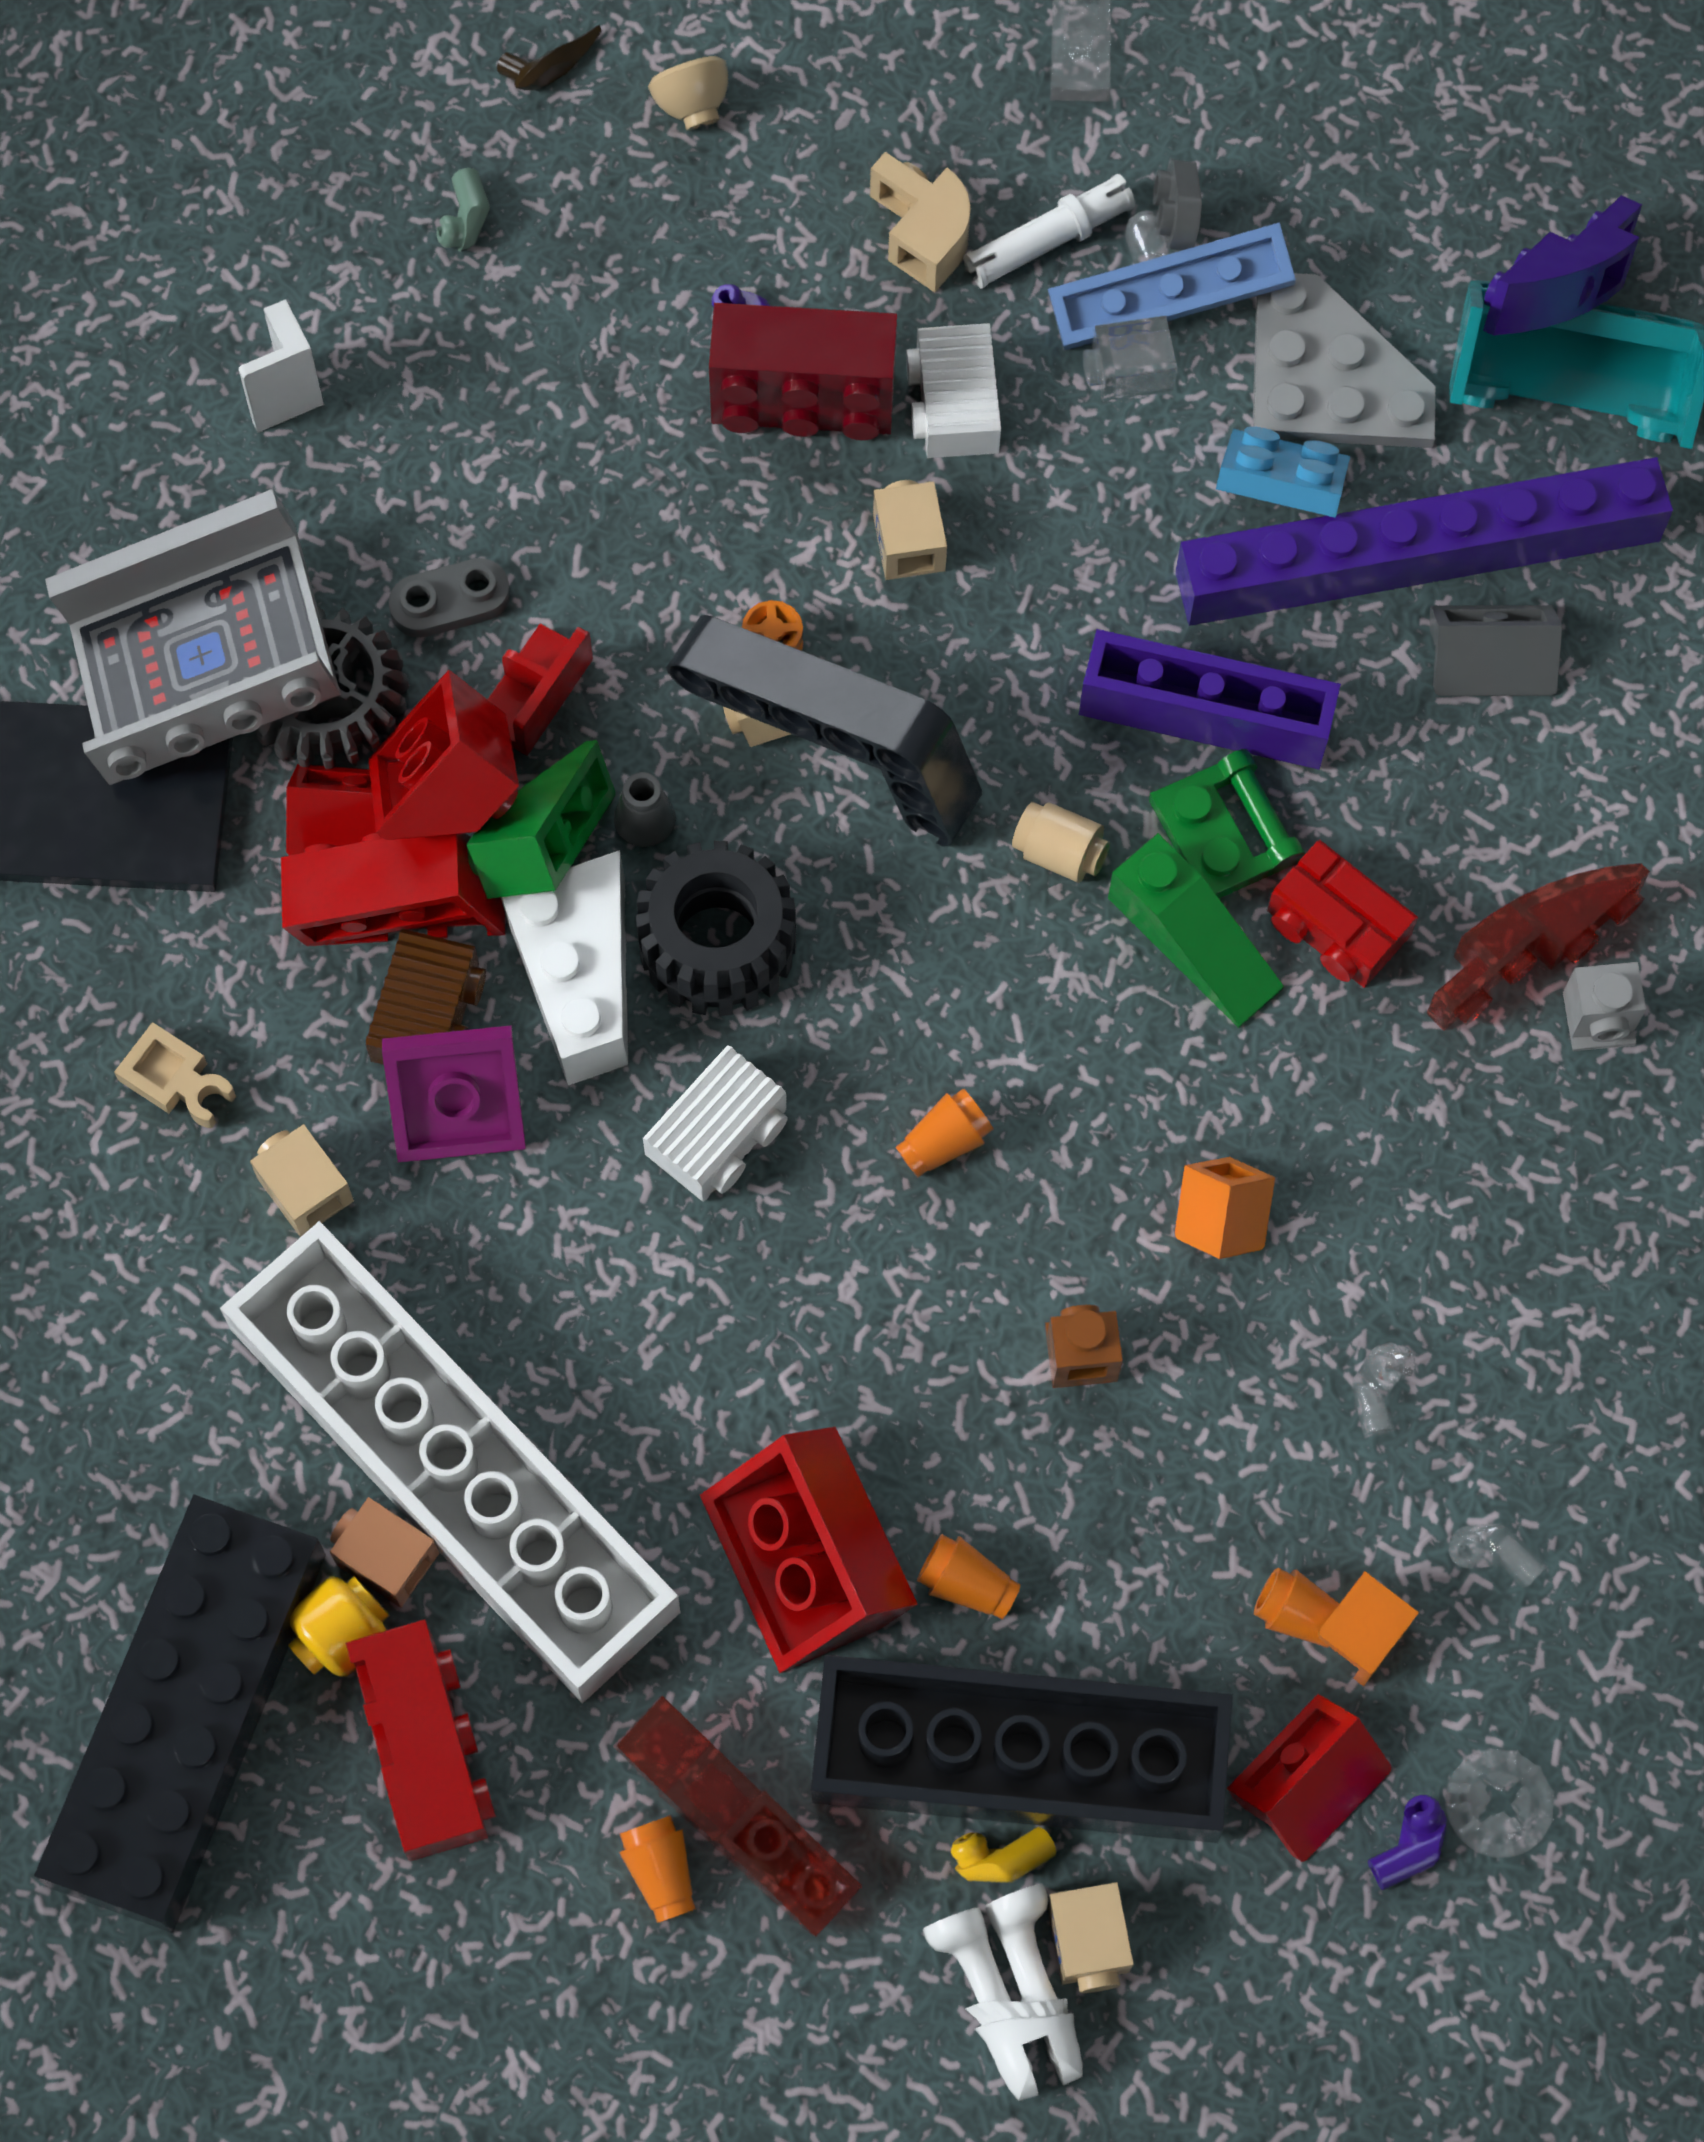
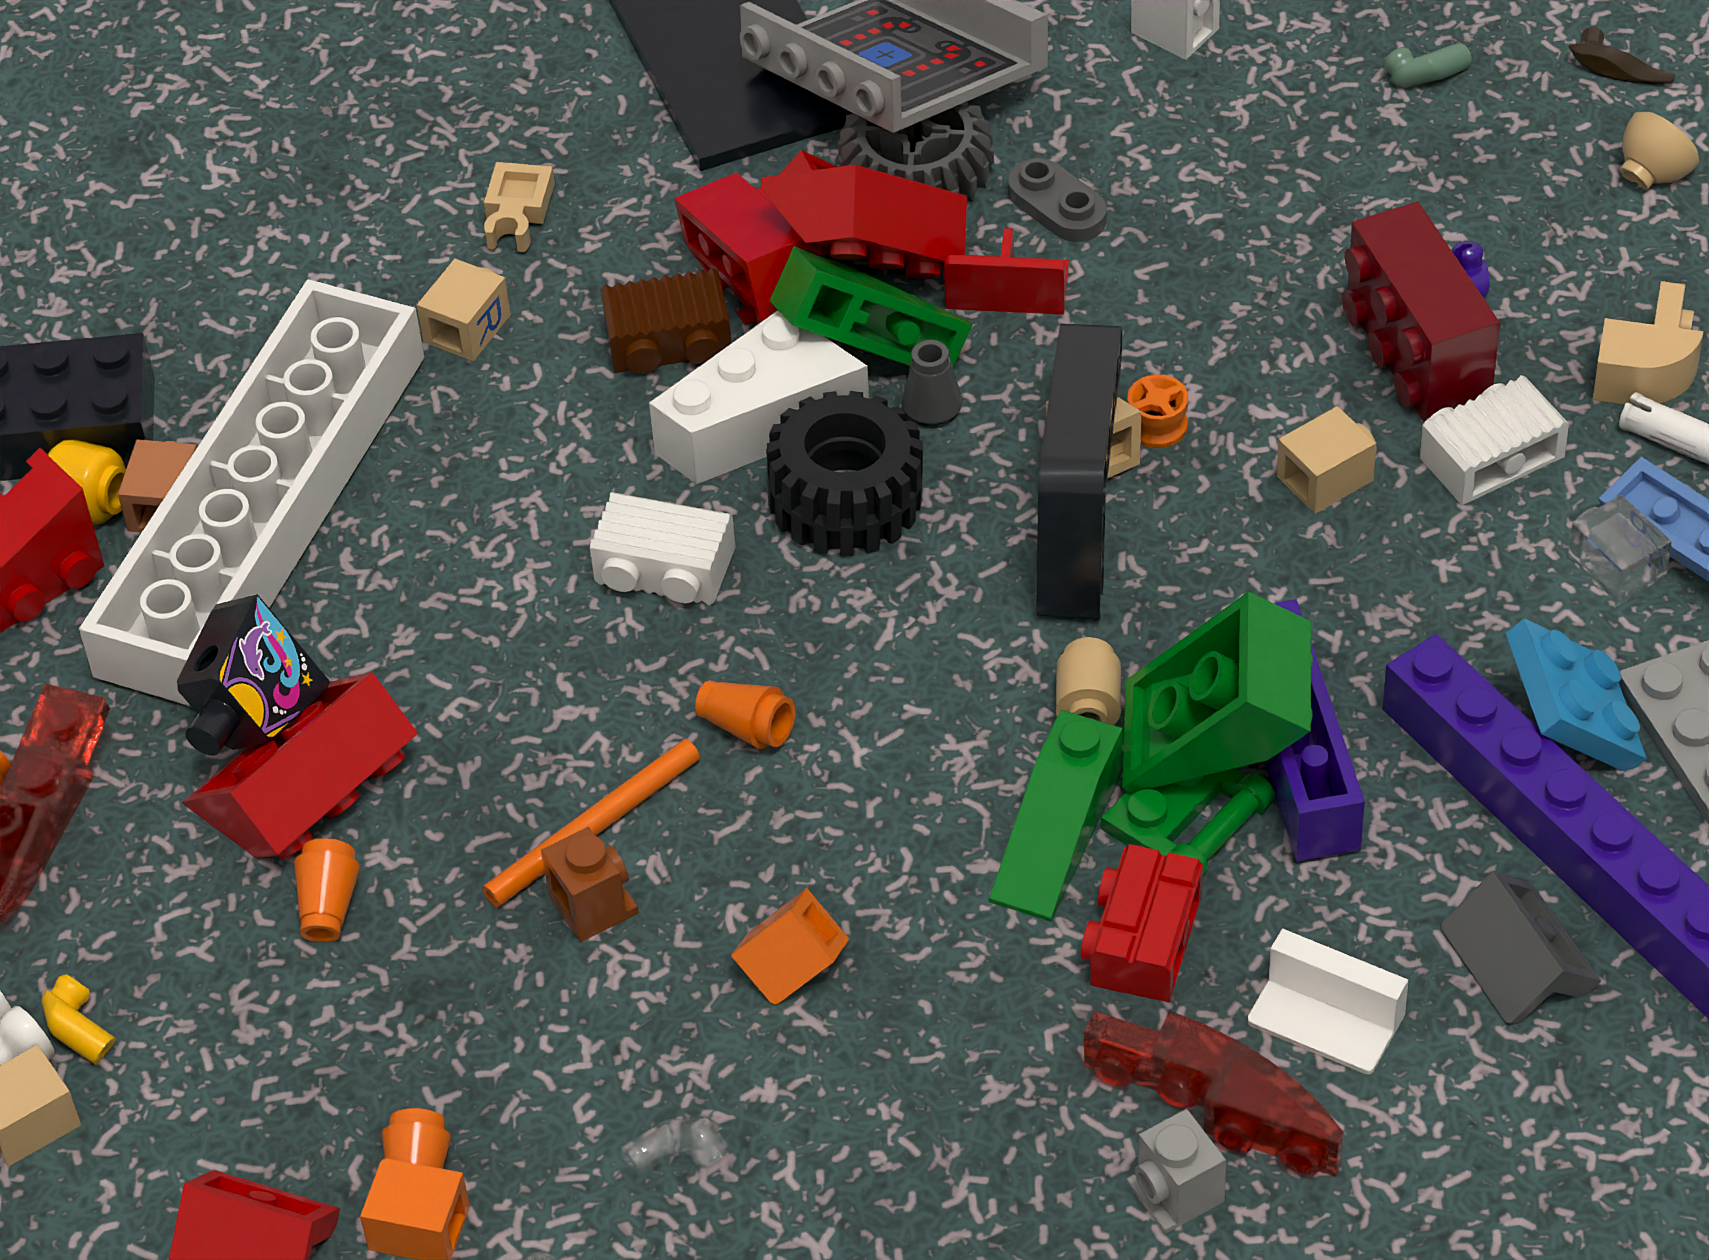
camera: 70 degrees right, 20 degrees down
(453, 1093) = (587, 360): magenta plate -> none
(711, 1557) = (245, 678): none -> black torso
(996, 1318) = (597, 818): none -> orange piece
(1022, 1748) = (170, 982): black brick -> none
(1183, 744) = (1219, 696): none -> green slope
(1483, 817) = (1329, 1002): none -> white panel

